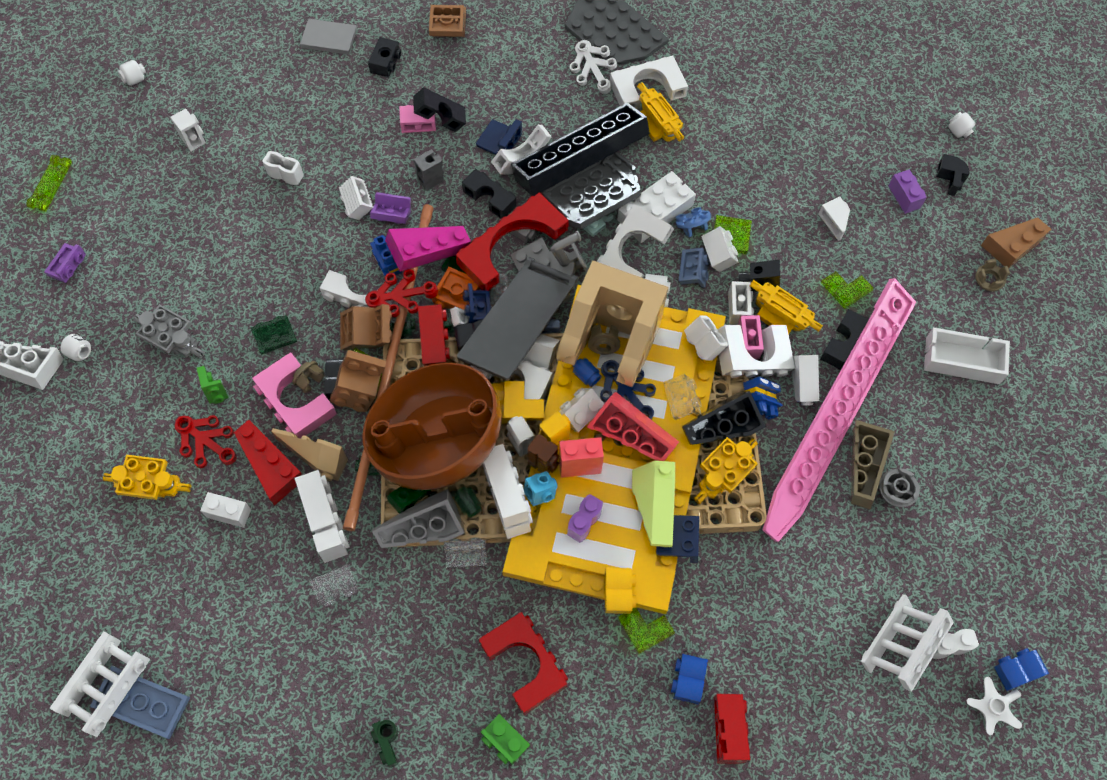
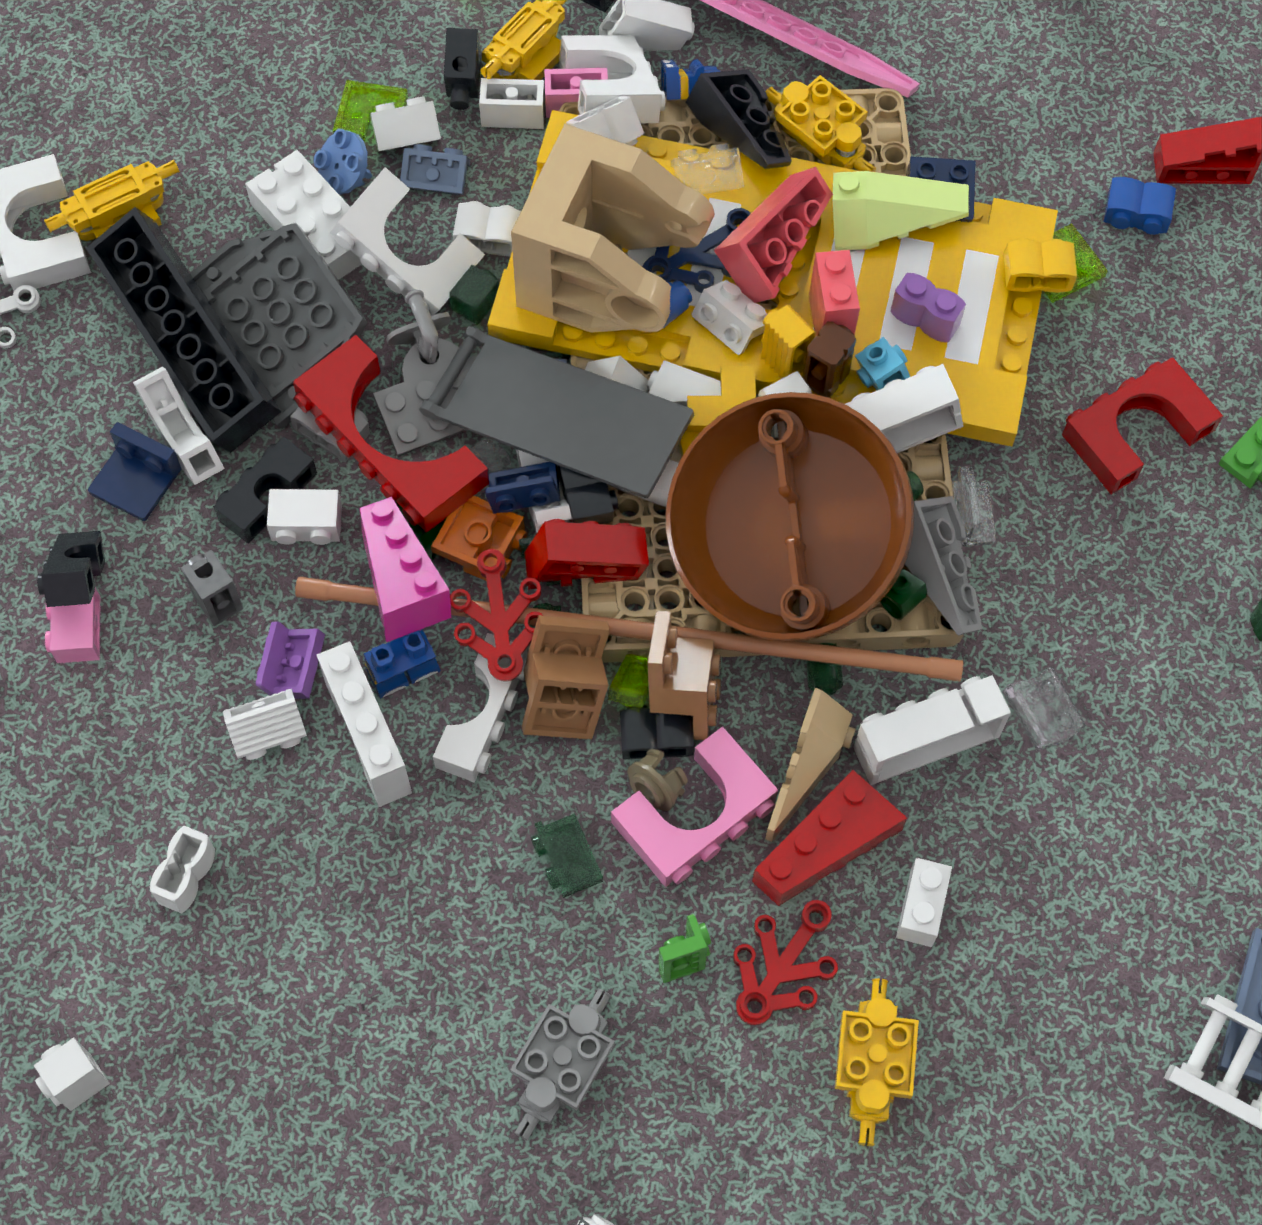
camera: 90 degrees left, 0 degrees up
(326, 237) = (365, 723): none -> white arch
(471, 211) = (304, 516): none -> white brick

